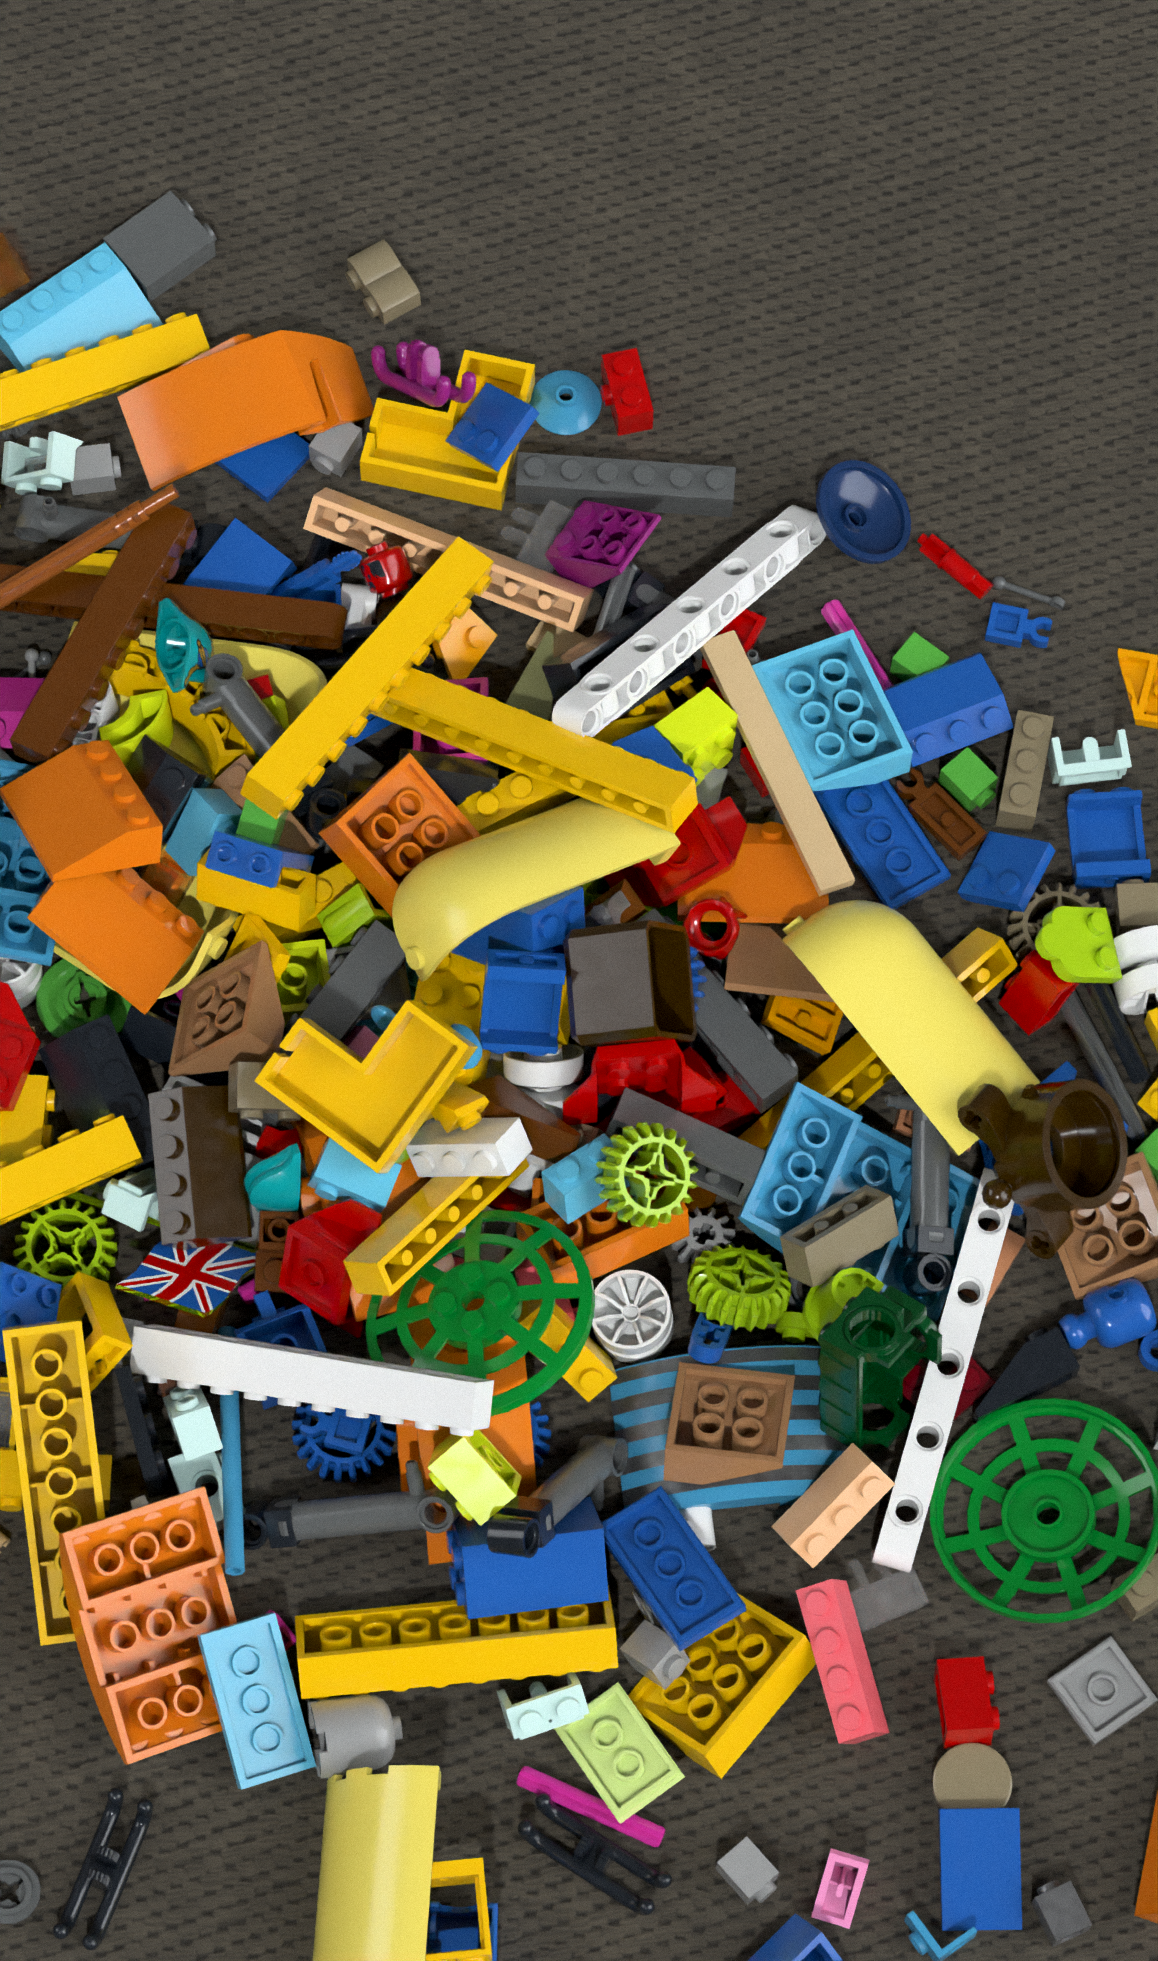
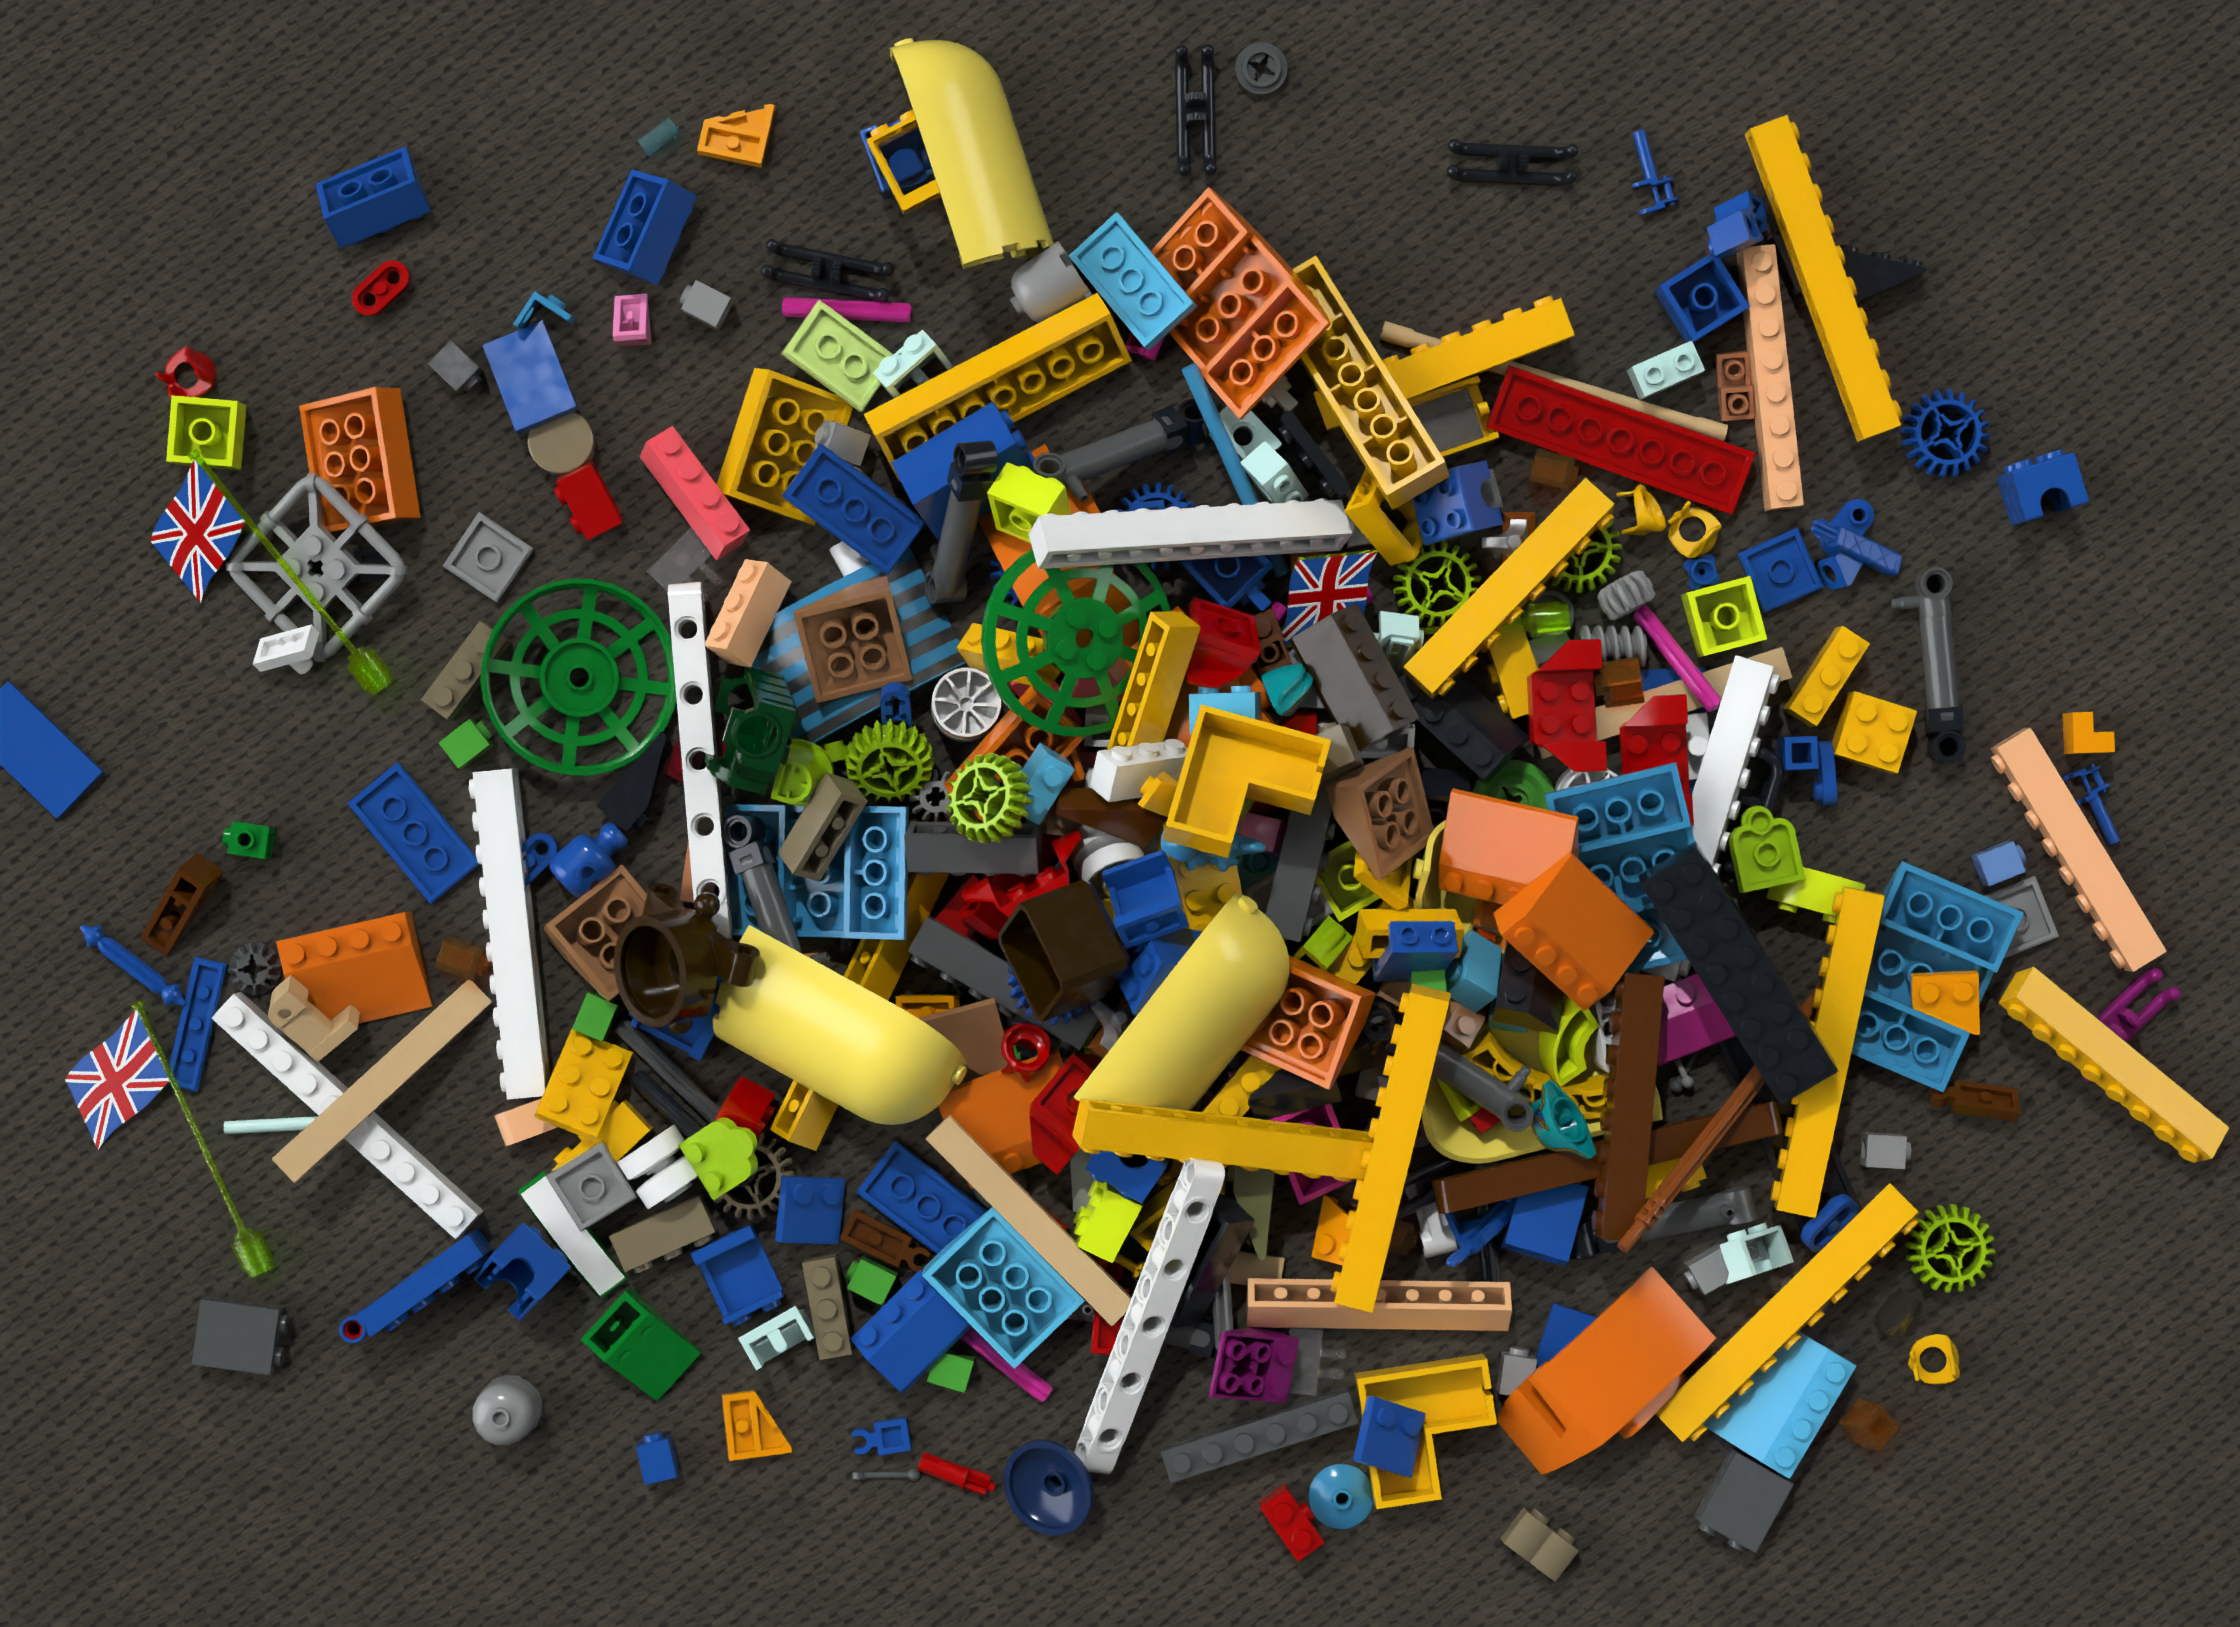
camera: 160 degrees right, 20 degrees up
(386, 569) = (1423, 1267): red head -> none
(422, 374) = (1467, 1458): magenta piece -> none

